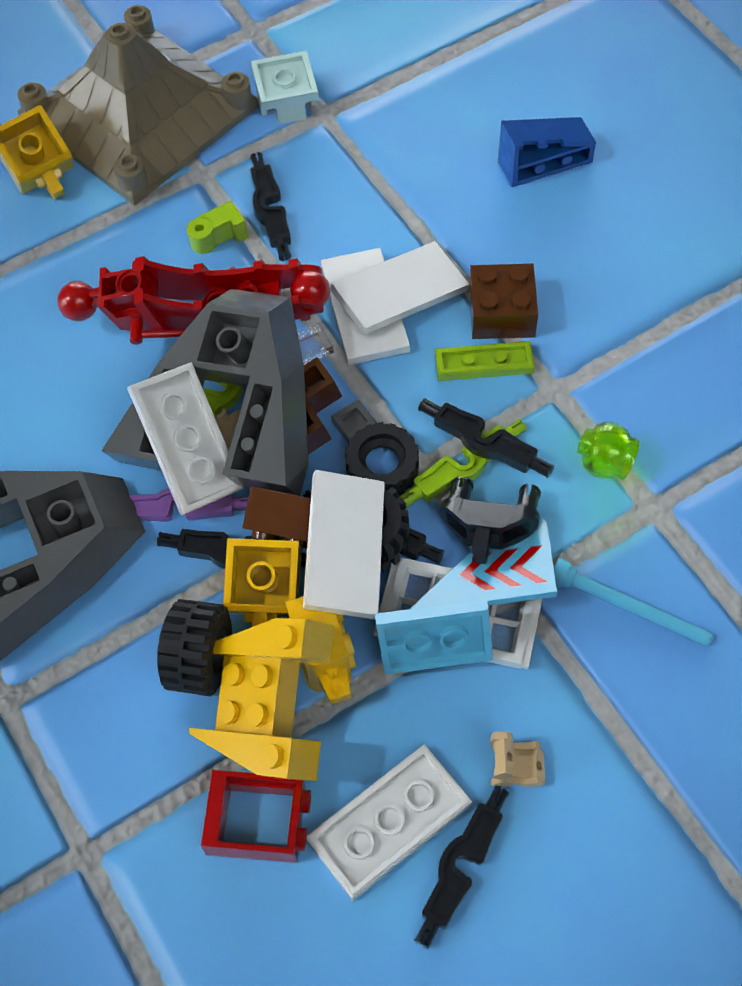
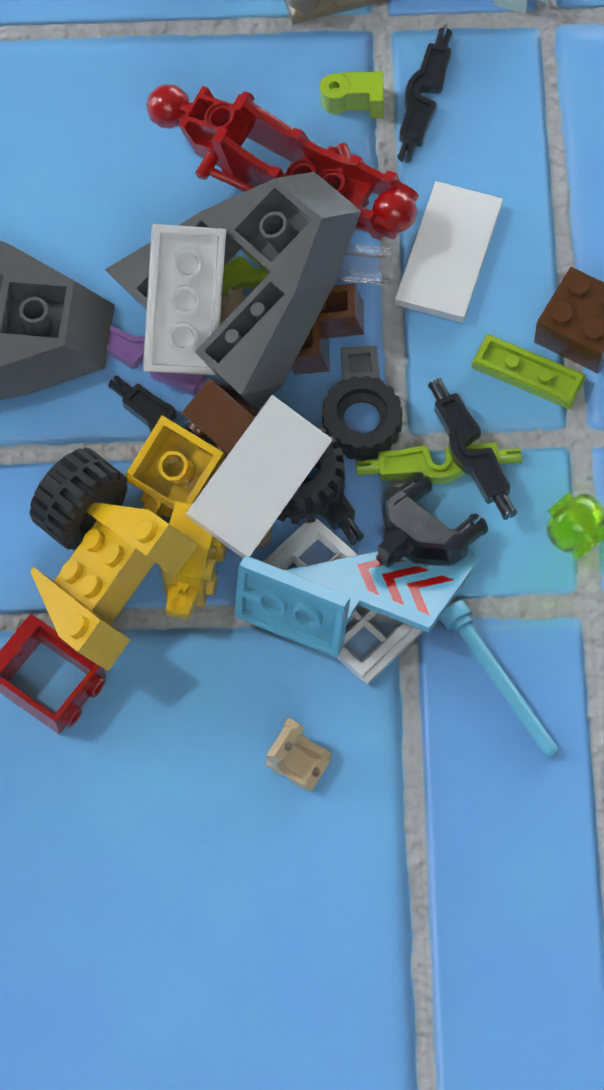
camera: 30 degrees right, 5 degrees up
(388, 821) = (158, 744): white tile -> none
(399, 287) = (492, 251): white tile -> none
(452, 883) = (214, 805): black piece -> none

